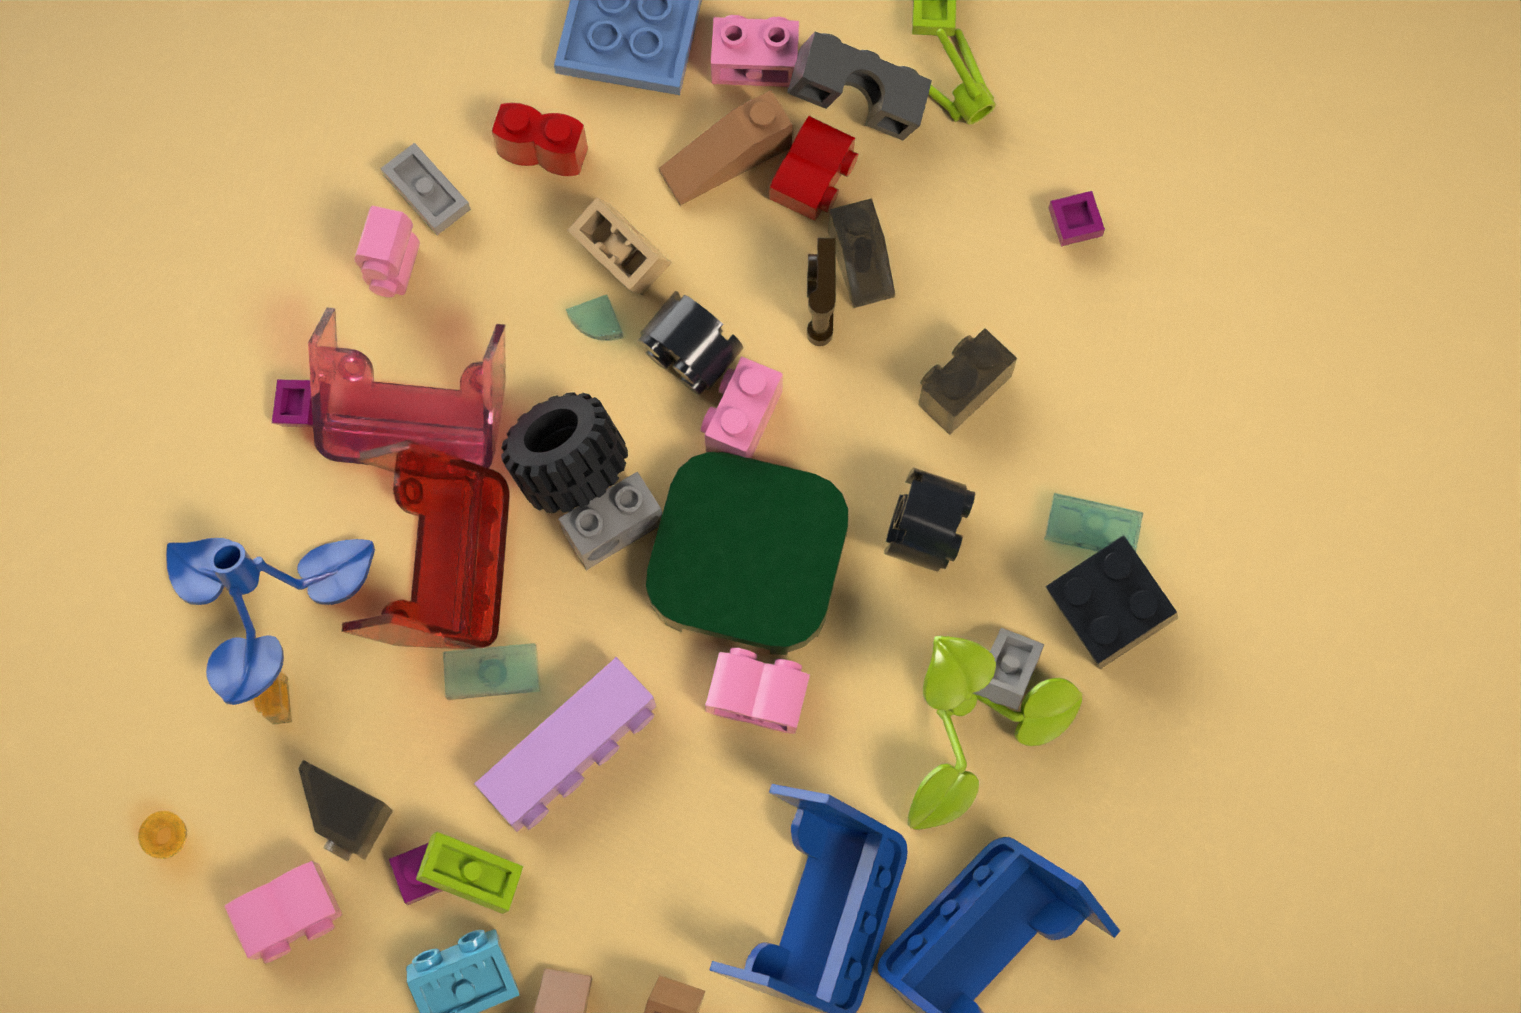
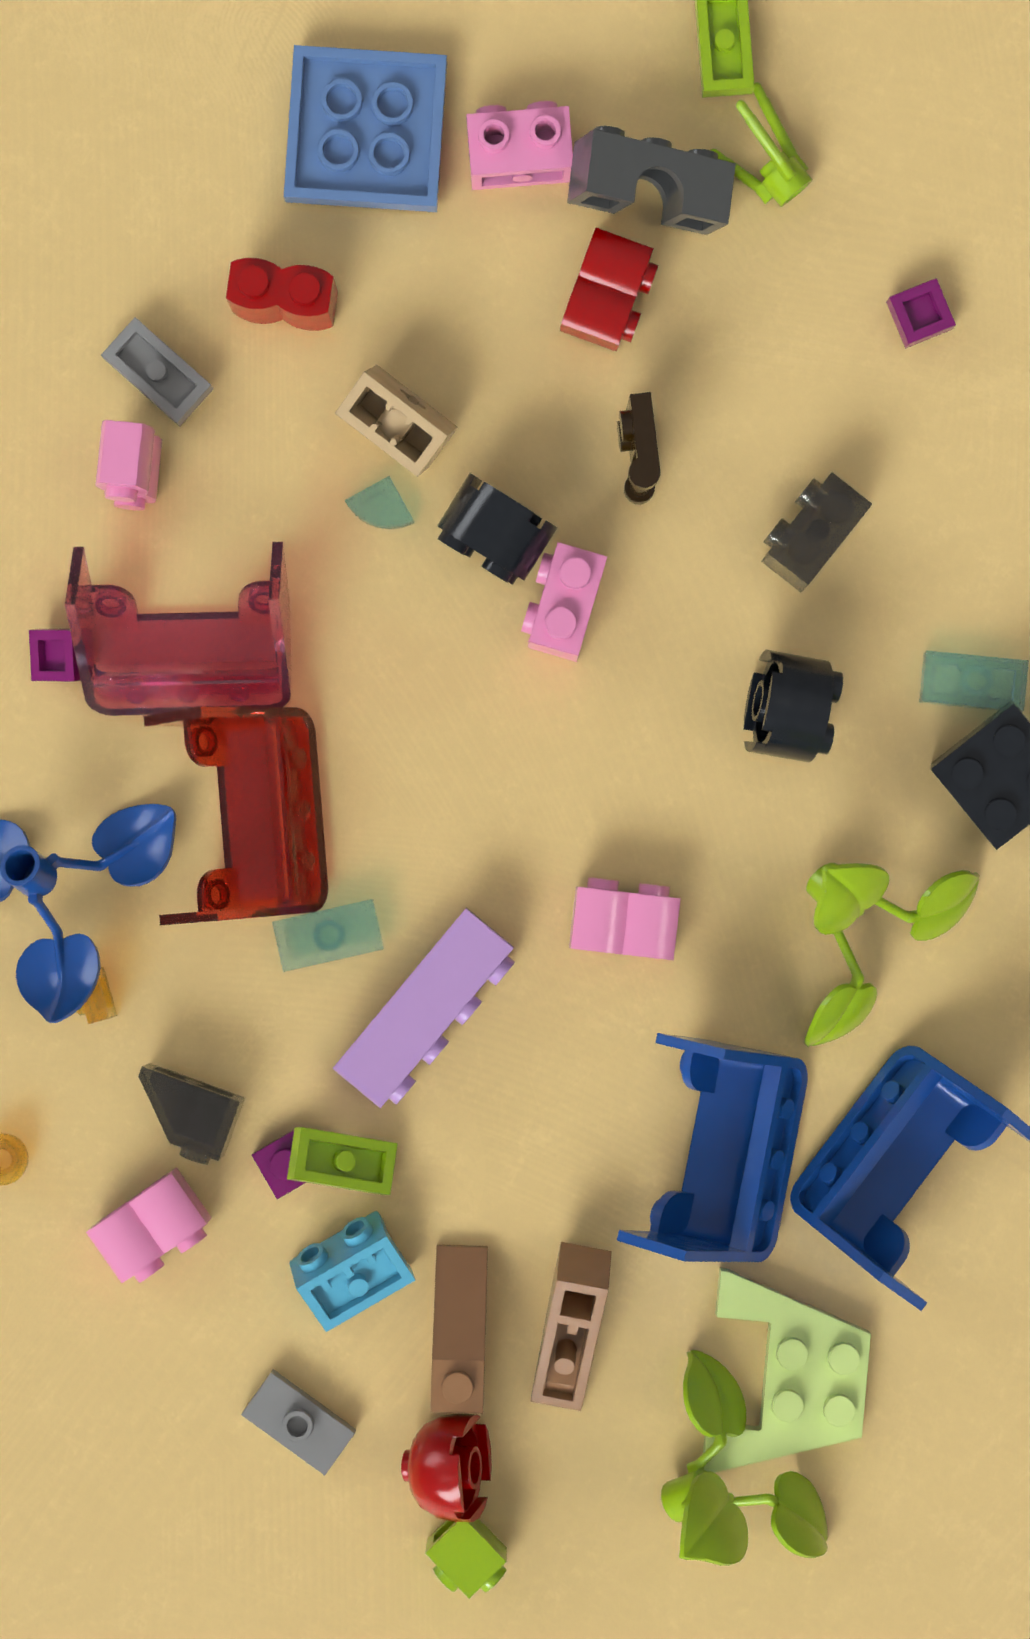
camera: 10 degrees left, 15 degrees up
(564, 452) = (391, 707): black tyre -> none
(611, 521) = (436, 748): light grey brick -> none
(729, 148) = (504, 277): medium nougat slope -> none
(747, 551) = (593, 763): dark green tile -> none
(861, 252) = (677, 389): clear smoke slope -> none
(1015, 663) = (902, 852): light grey plate -> none

